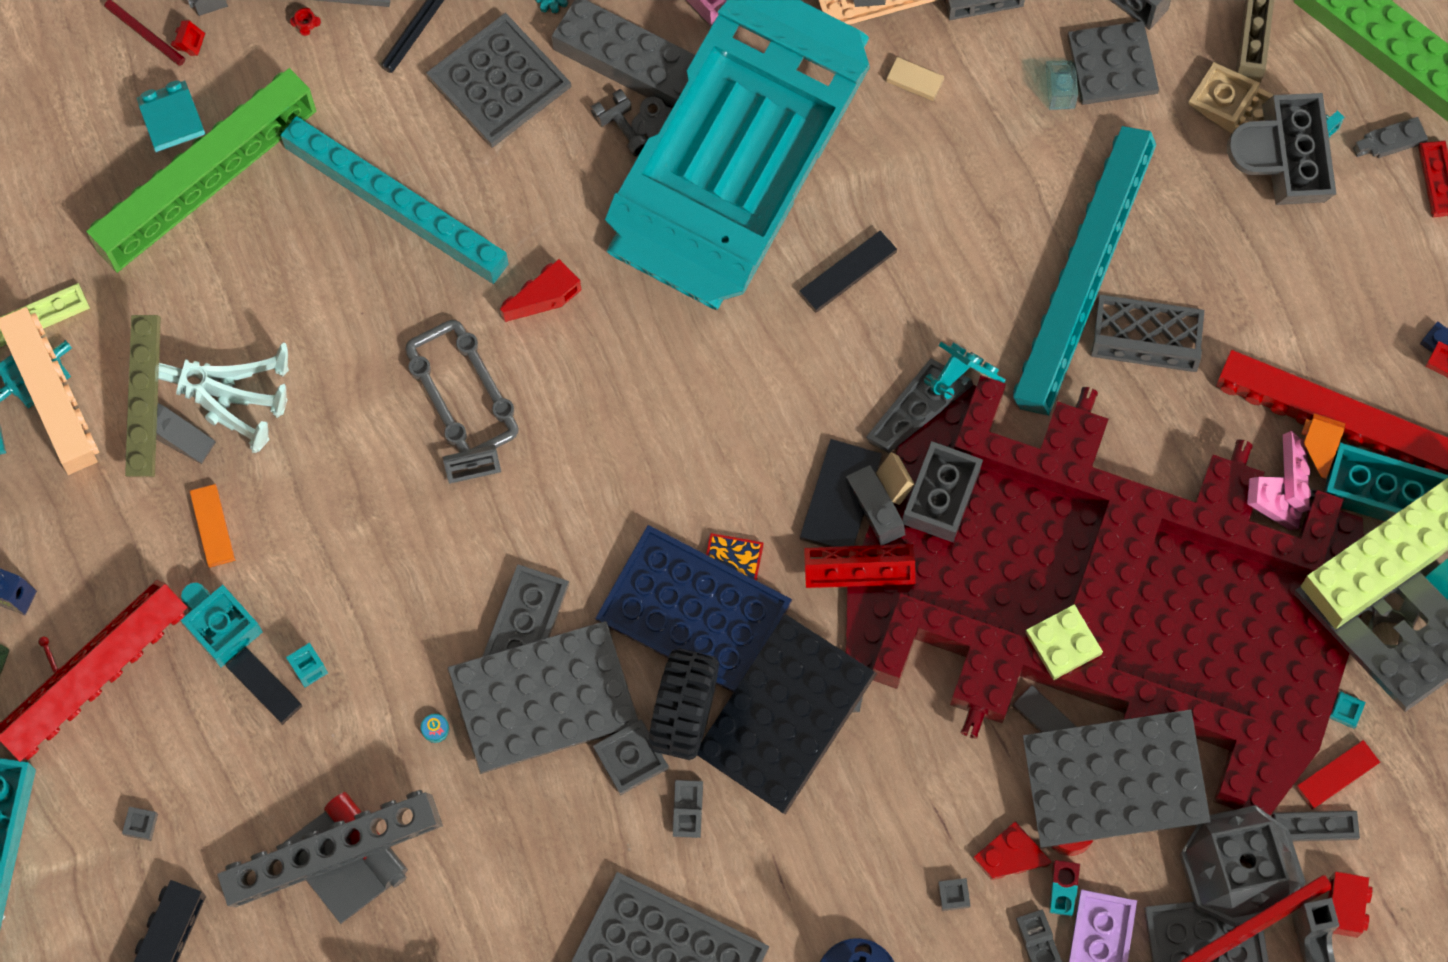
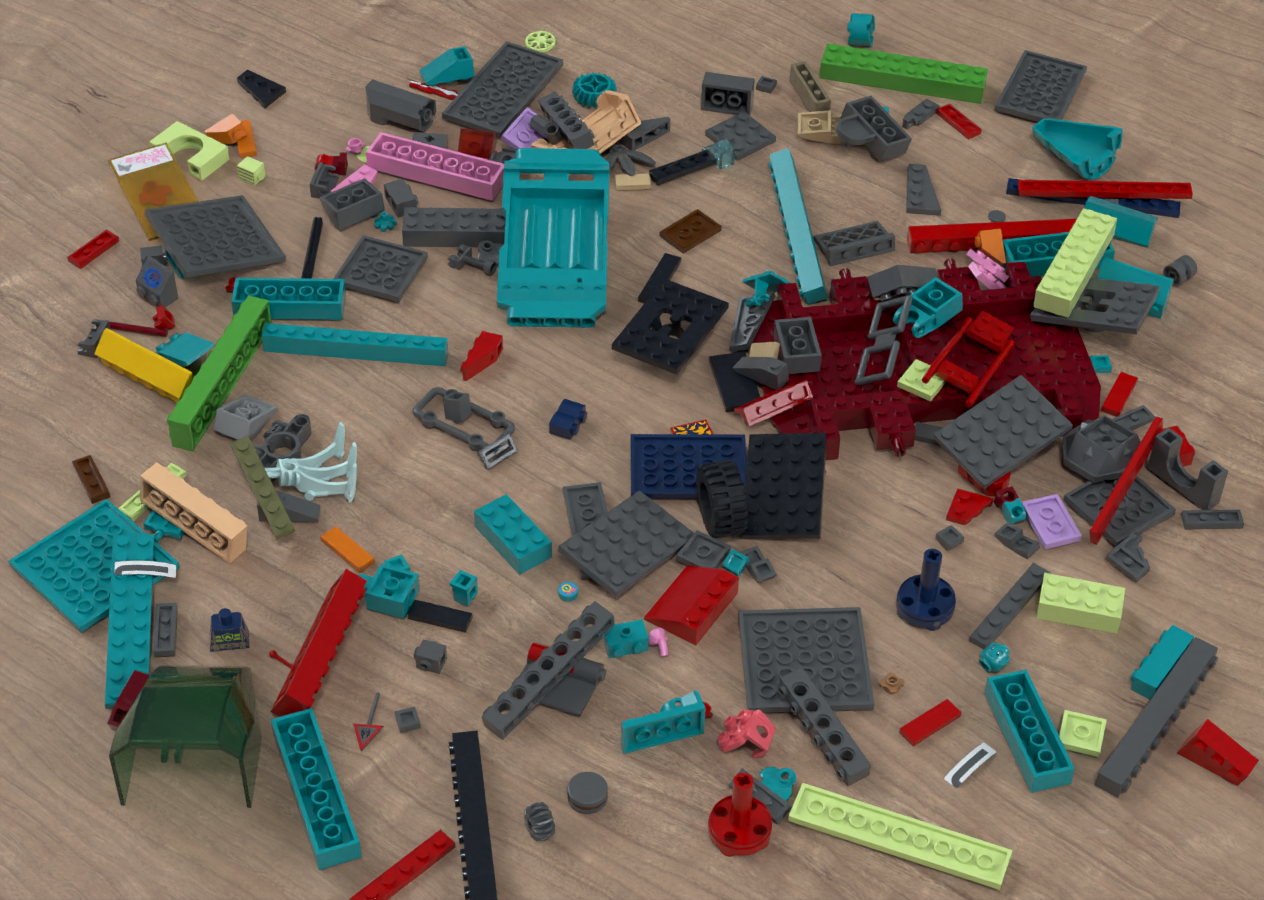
camera: 30 degrees left, 25 degrees down
(88, 813) = (366, 732): none -> piece
(90, 32) = (89, 346): none -> dark grey hinge
(112, 116) = (143, 365): none -> yellow slope
(199, 253) = (243, 417): none -> light grey slope
(215, 745) = (430, 656): none -> dark grey brick
(225, 305) = (285, 435): none -> dark grey piece
(252, 585) = (397, 562): none -> teal plate
(354, 82) = (294, 297): none -> teal brick
(414, 608) = (513, 534): none -> teal brick
(458, 842) = (626, 639): none -> teal brick
(459, 369) = (457, 406): none -> dark grey brick
(497, 860) = (658, 637): none -> bright pink plate
(572, 825) = (694, 602): none -> red slope
(589, 455) = (568, 419): none -> dark blue brick
(661, 792) = (735, 562): none -> teal tile
(761, 403) = (655, 344): none -> black plate
(925, 23) = (623, 155): none -> dark grey plant
(940, 205) = (690, 231): none -> reddish brown tile
(996, 86) = (682, 167): none -> black plate
(1055, 548) = (884, 340): none -> dark grey bar
(1136, 531) = (931, 307): none -> teal brick
(1145, 463) = (899, 281): none -> dark grey piece
(1219, 594) = (985, 330): none -> red plate
(1296, 289) = (920, 192): none -> dark grey wing
(1379, 378) = (996, 216): none -> dark grey piece

